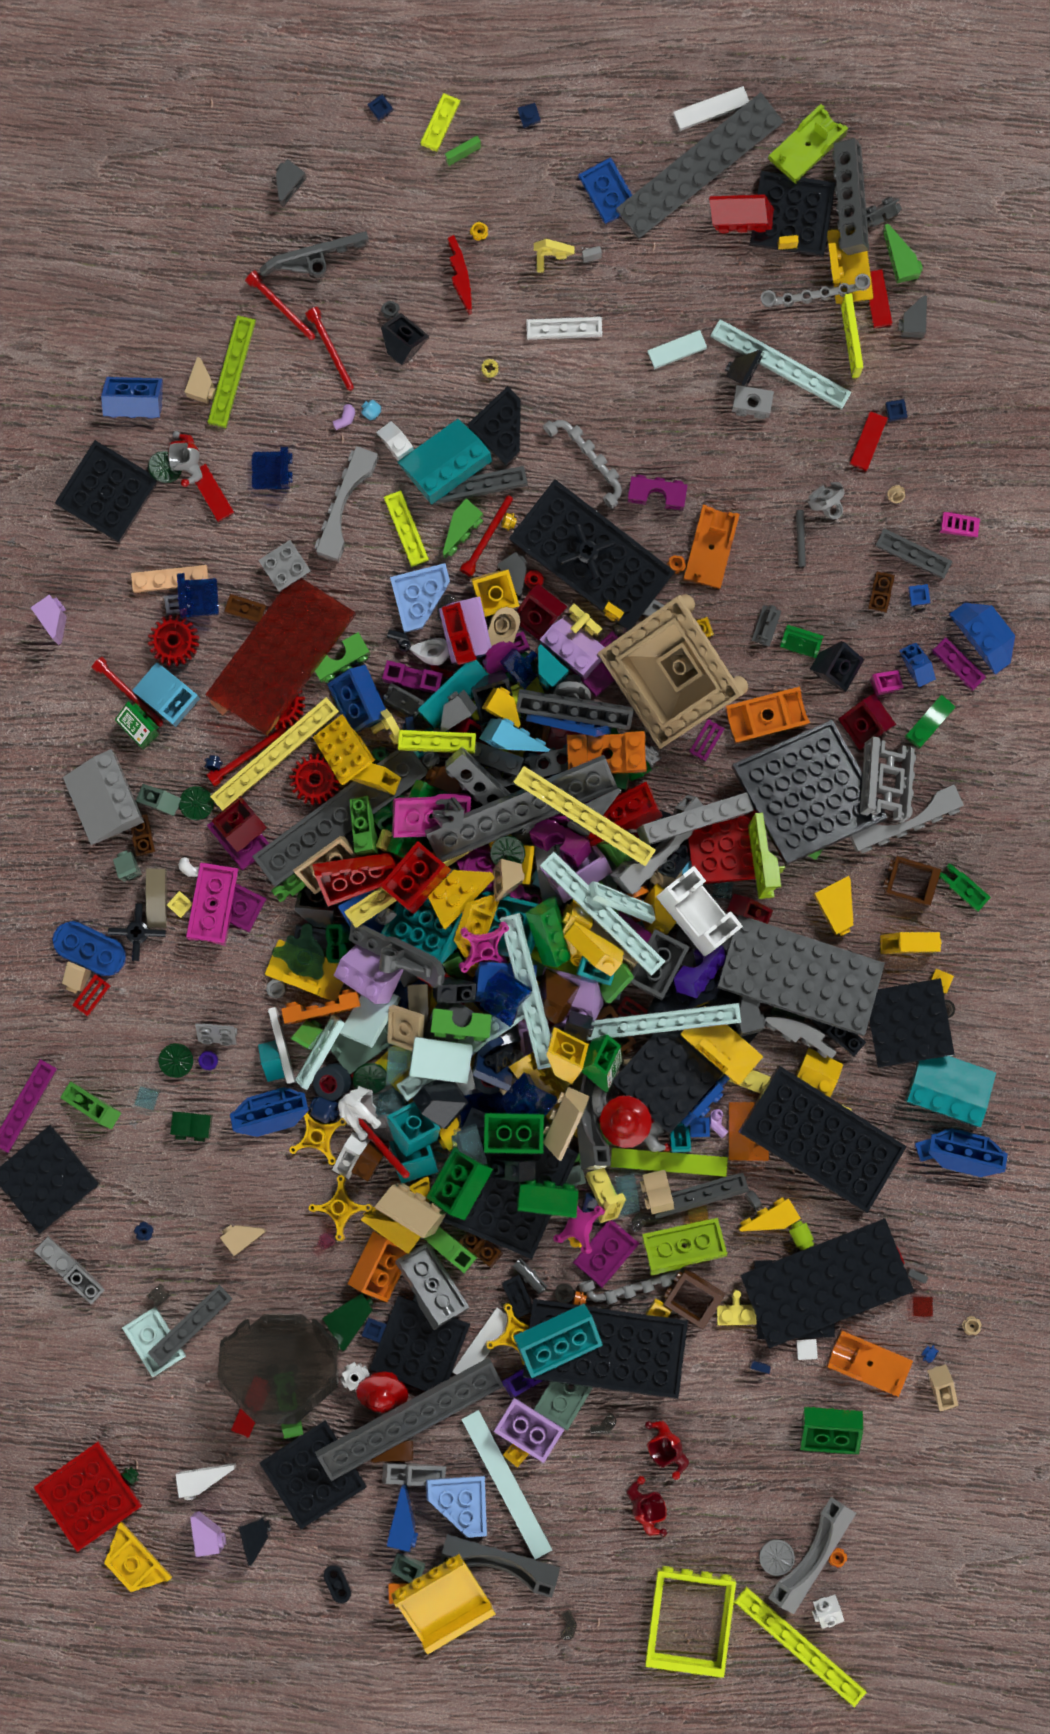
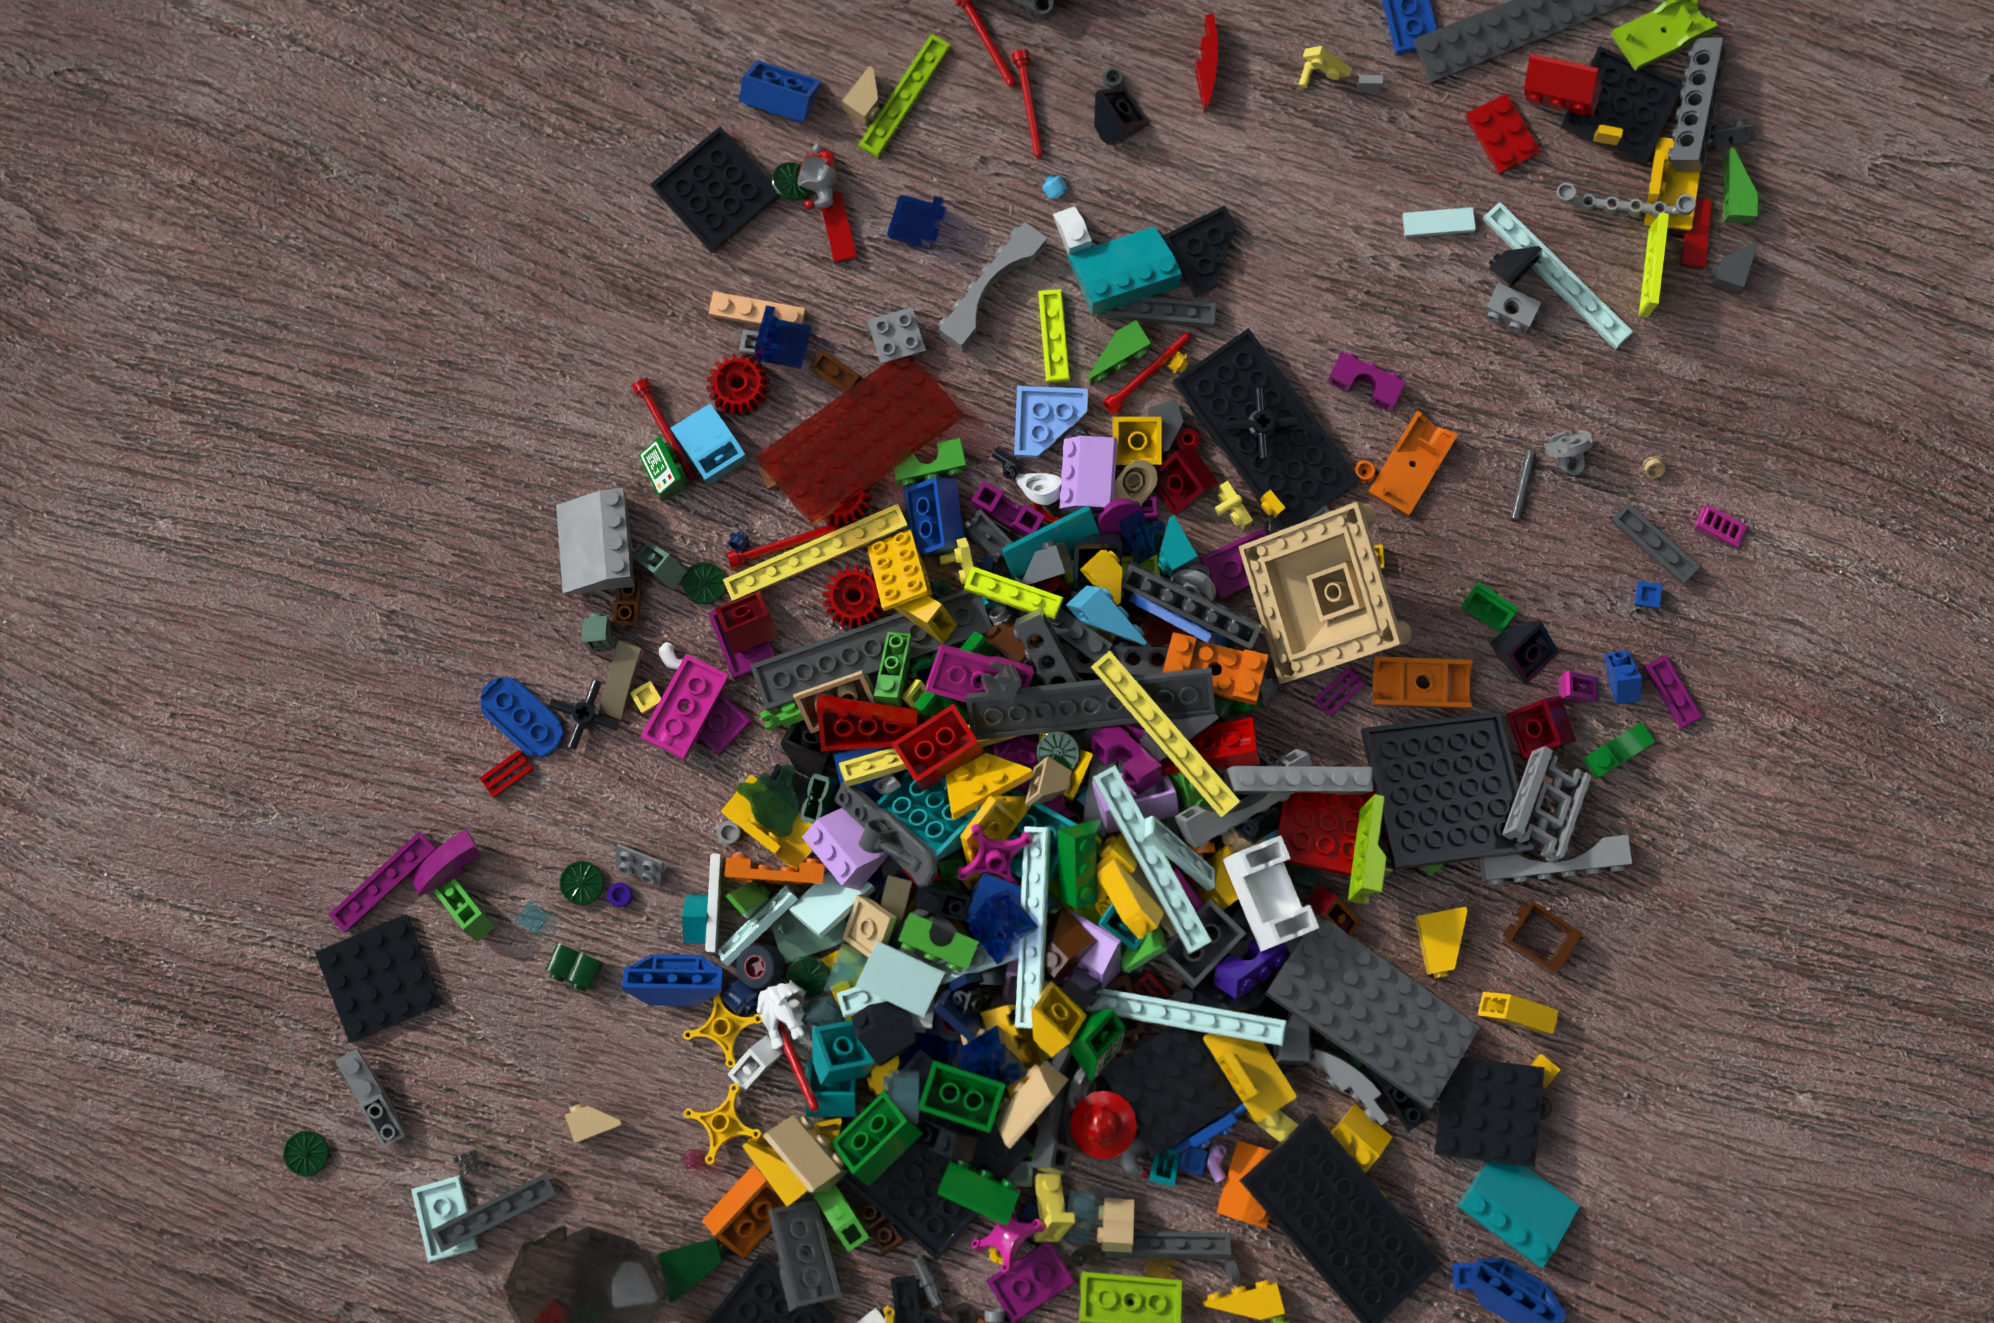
camera: 15 degrees right, 5 degrees down
(33, 1325) = (305, 1153): none -> dark green wheel
(52, 616) = (603, 313): lavender slope -> none
(68, 1077) = (445, 862): none -> magenta slope
(75, 977) = (493, 745): tan slope -> none
(143, 1226) = (482, 1079): dark blue plate -> none
(347, 417) = (1023, 188): lavender arm -> none
(368, 1162) = (773, 1077): reddish brown slope -> none
(374, 1329) = (716, 1288): dark blue plate -> none
(458, 633) = (1079, 473): red slope -> none
(479, 226) = (1244, 14): yellow plate -> none
(486, 364) = (1207, 173): light yellow bush -> none
(564, 328) = (1311, 159): white tile -> none
(575, 650) = (1211, 535): lavender slope -> none
(587, 448) = (1297, 306): light grey bar -> none
(669, 1162) = (1142, 1192): lime tile -> none
(706, 263) = (1502, 134): none -> red plate
(766, 625) = (1452, 576): dark grey hinge -> none
(868, 441) = (1637, 395): red tile -> none
(881, 591) = (1602, 577): reddish brown slope -> none
(896, 410) = (1681, 369): dark blue tile -> none
(966, 888) = (1605, 966): green hinge -> none
(986, 633) = (1717, 665): blue wedge -> none

